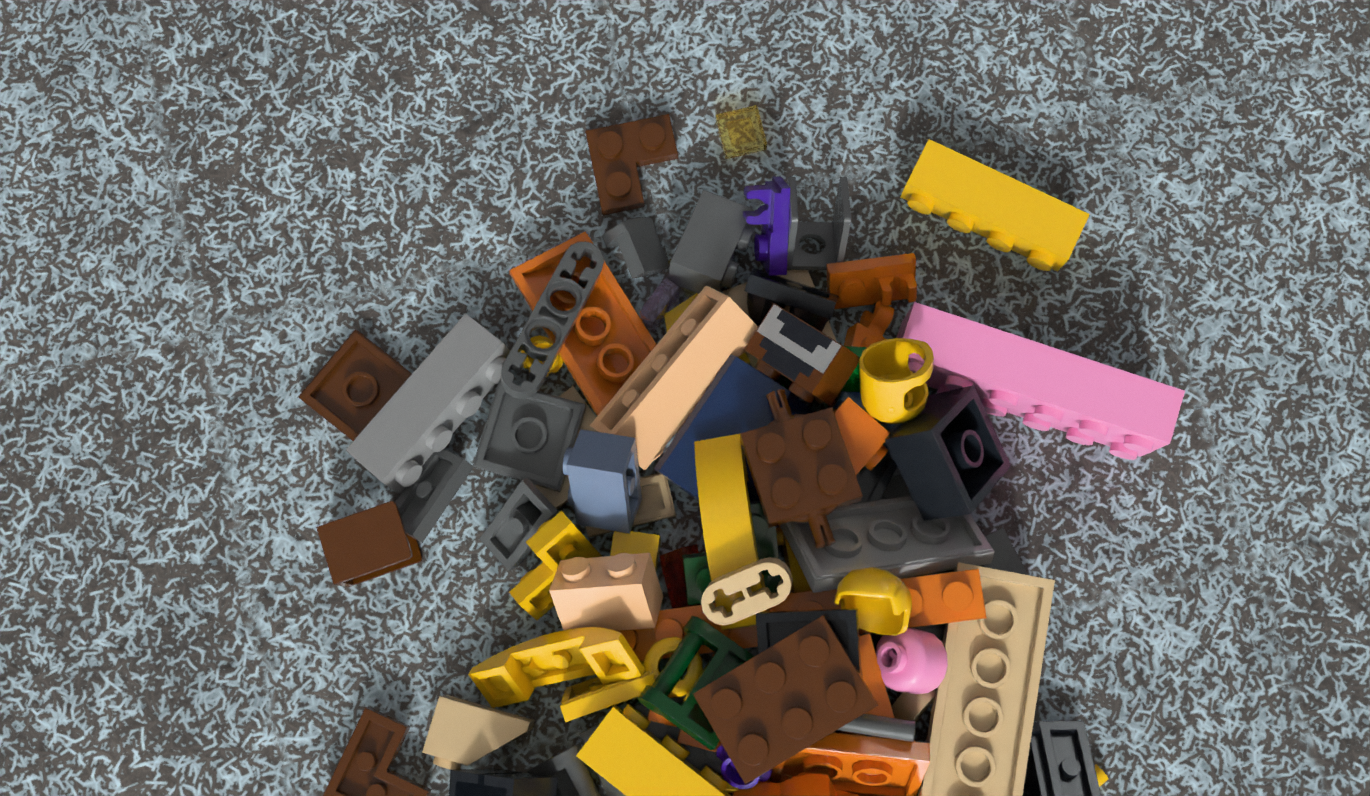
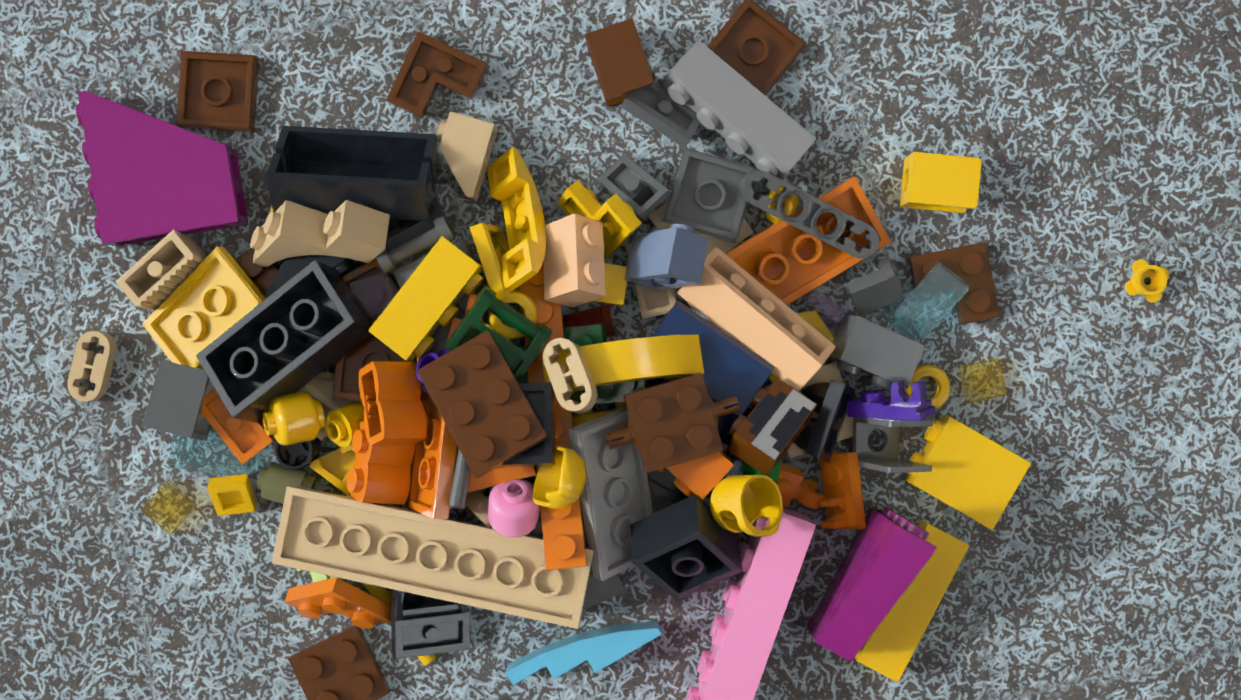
camera: 85 degrees right, 10 degrees up
(517, 178) = (940, 182): none -> yellow piece
(654, 189) = (928, 303): none -> clear light blue tile
(742, 175) = (943, 383): none -> yellow piece
(844, 137) = (968, 471): none -> yellow brick
(976, 241) = (869, 581): none -> magenta slope
(1070, 562) = (596, 646): none -> medium azure slope

